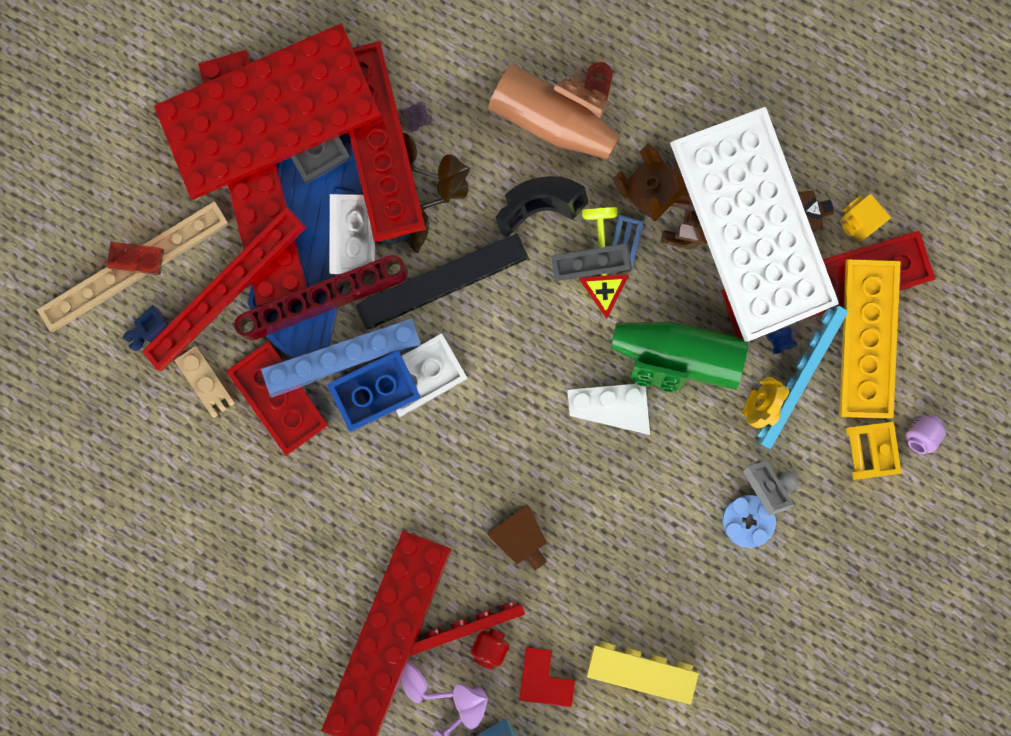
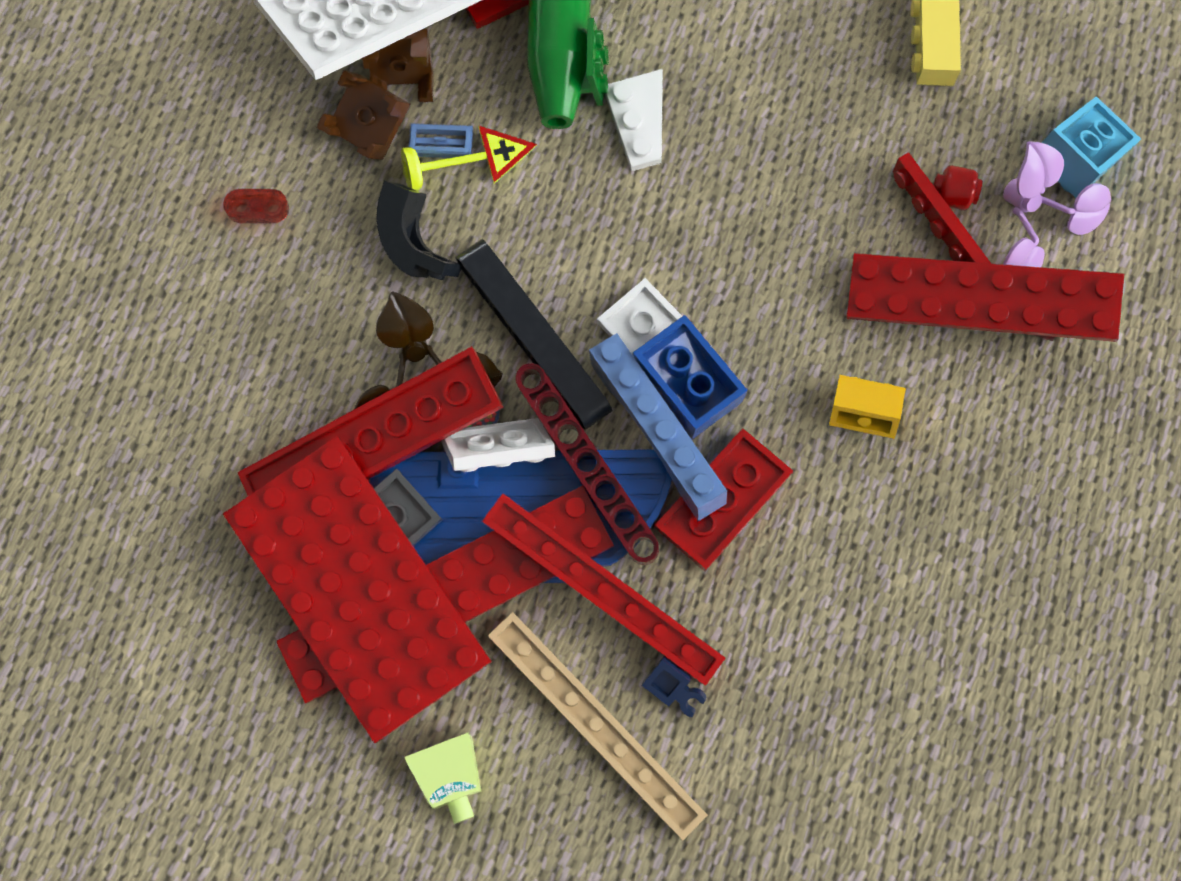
camera: 105 degrees left, 10 degrees down
(122, 154) = (448, 775): none -> yellowish green torso
(135, 258) = (586, 717): clear red plate -> none
(204, 380) = (722, 599): tan hinge -> none
(322, 525) = (867, 406): none -> yellow brick
(420, 109) = (328, 399): clear purple plate -> none
(520, 538) = (818, 181): reddish brown torso -> none
(538, 685) = (980, 132): red tile -> none
(558, 113) = (300, 234): nougat piece -> none
(591, 262) = (473, 165): dark grey plate -> none

